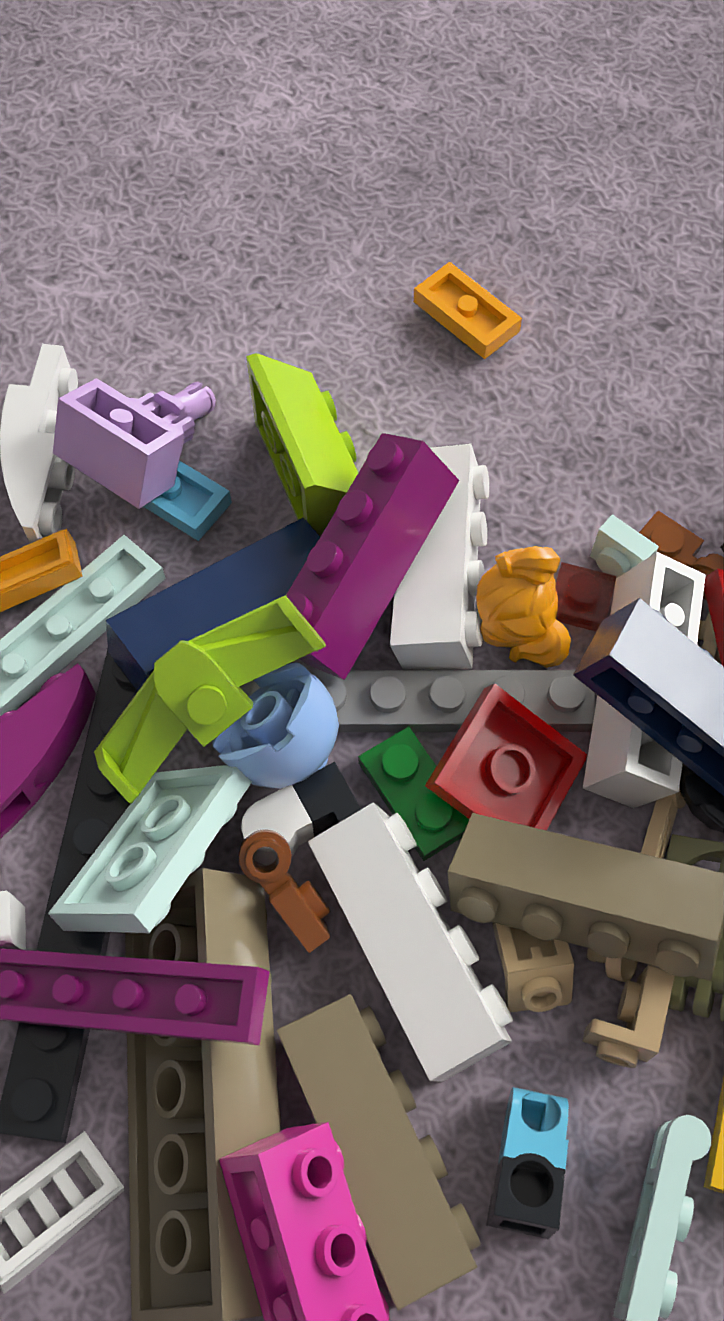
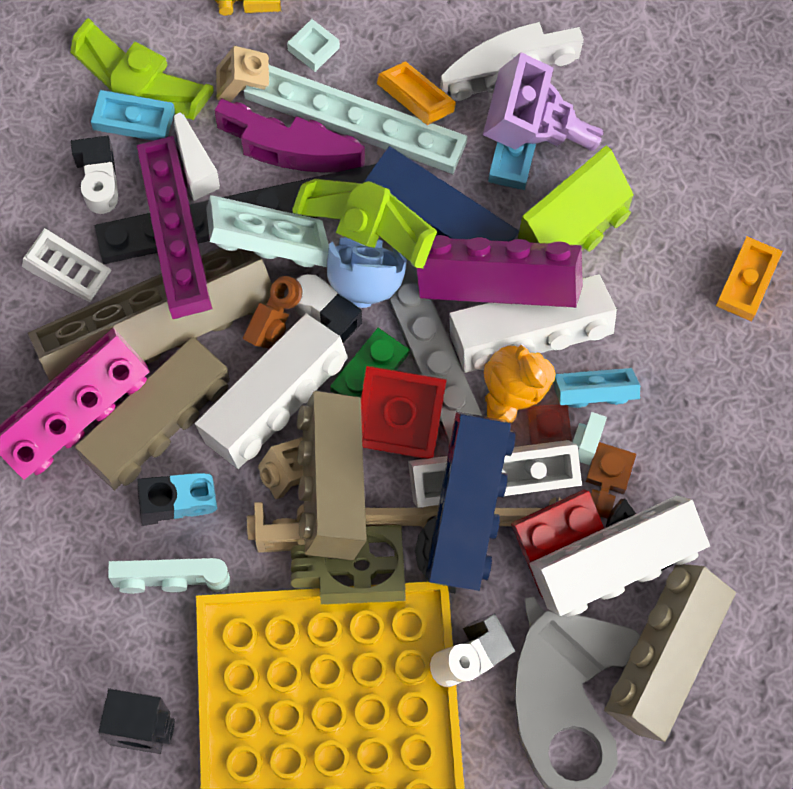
camera: 65 degrees right, 5 degrees up
(555, 510) = (588, 387): none -> medium azure plate

